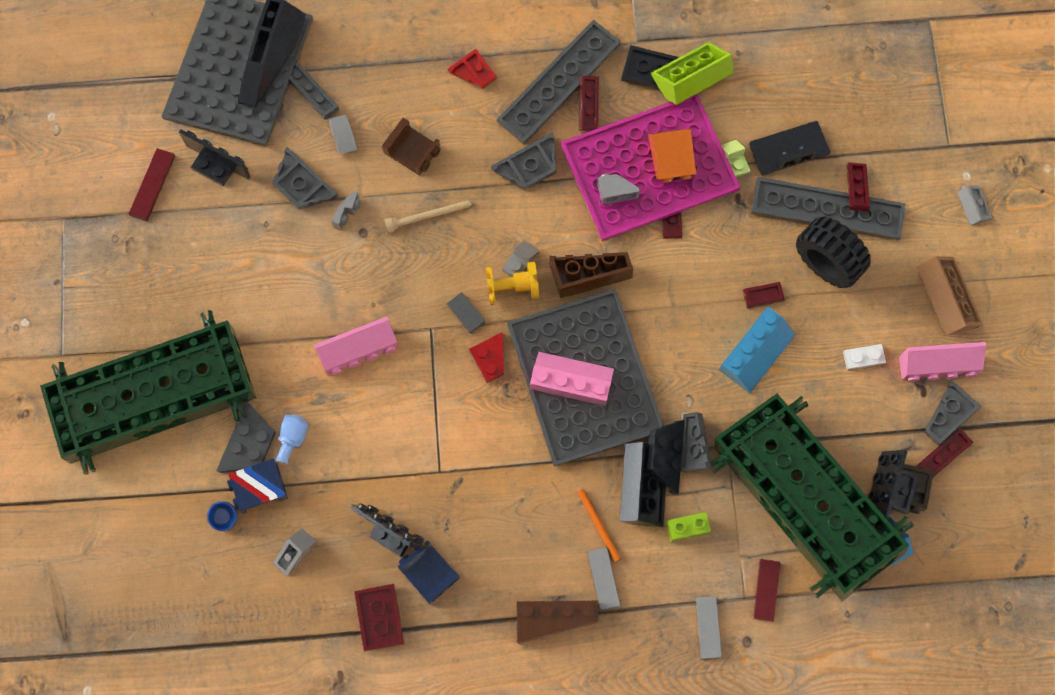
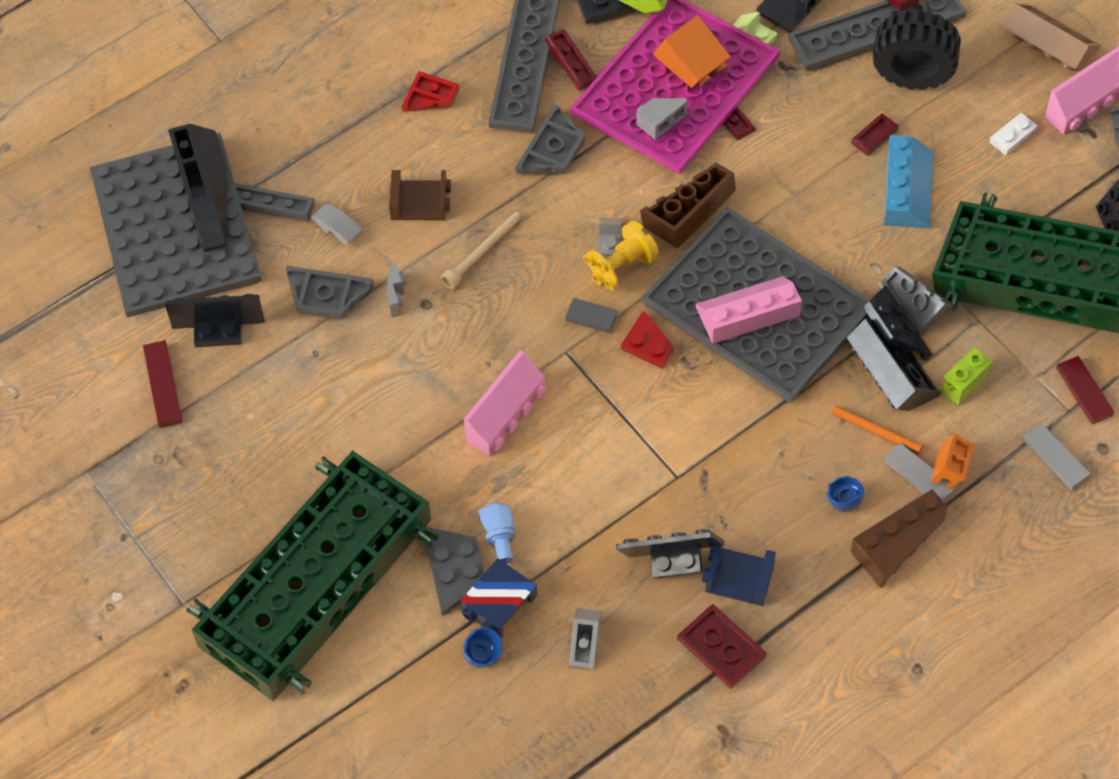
camera: 30 degrees left, 15 degrees down
(539, 561) = (845, 493): none -> blue hair
(629, 586) = (952, 461): none -> orange hinge

